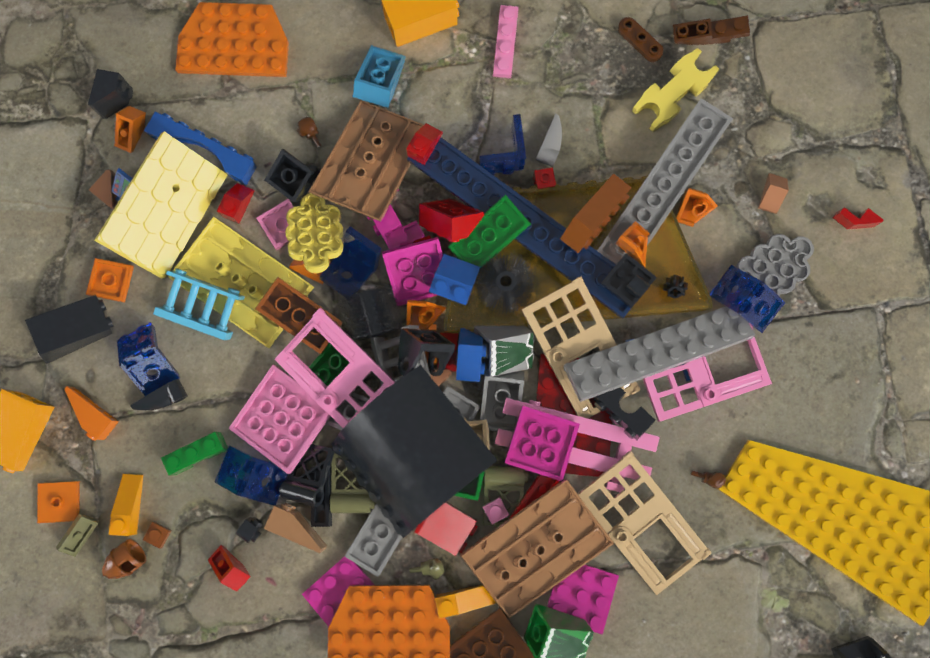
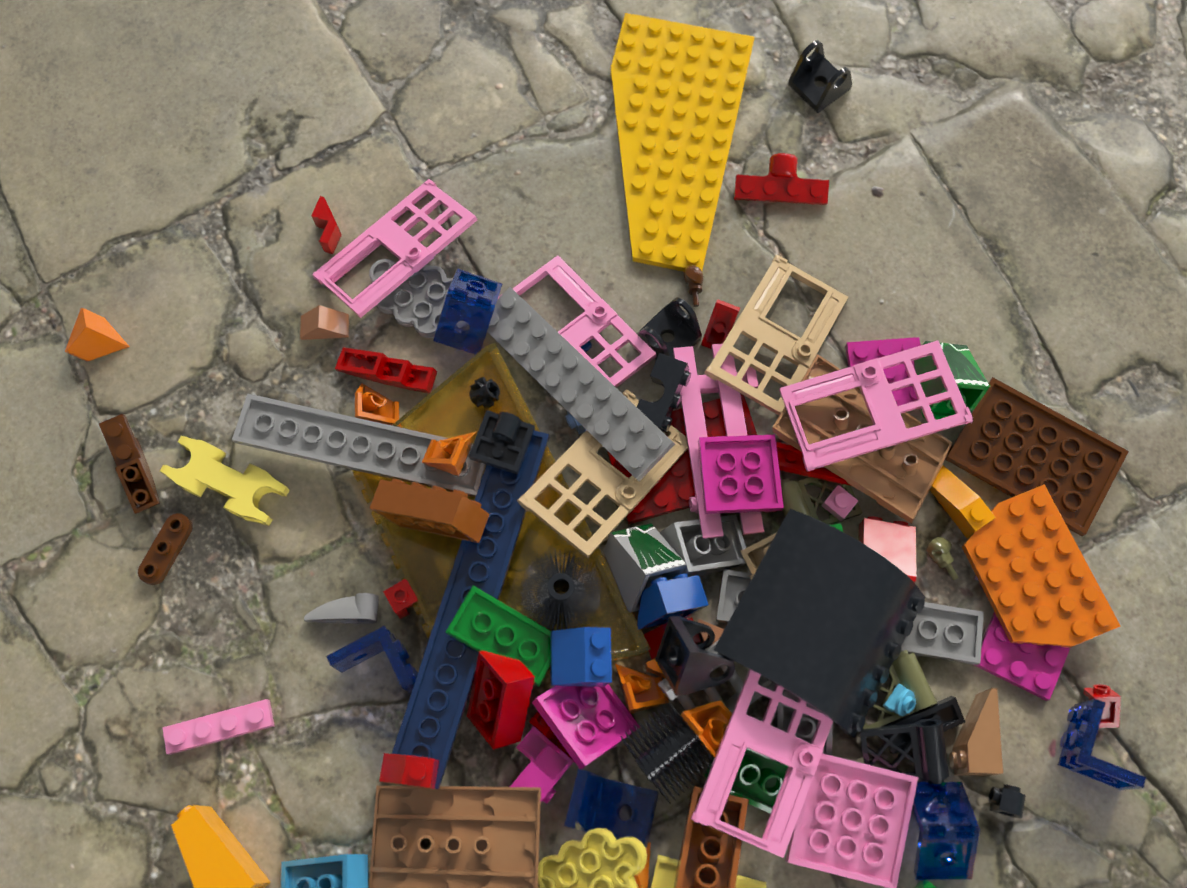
camera: 110 degrees left, 10 degrees down
(228, 569) = (1068, 808): red slope -> none
(265, 596) = (1079, 744): none -> clear blue bracket
(281, 629) = (1112, 700): none -> bracket
(341, 487) = (901, 700): none -> medium azure plate
(377, 346) = (709, 724): none -> orange slope
(551, 568) = (886, 416): none -> bright pink door
(667, 482) = (720, 323): none -> red slope
(686, 447) = (674, 321): none -> black hose
(720, 225) = (386, 370): none -> red slope
(773, 586) = (781, 184): none -> red plate
(818, 269) = (395, 238): none -> bright pink door
(820, 30) = (93, 337): none -> orange slope

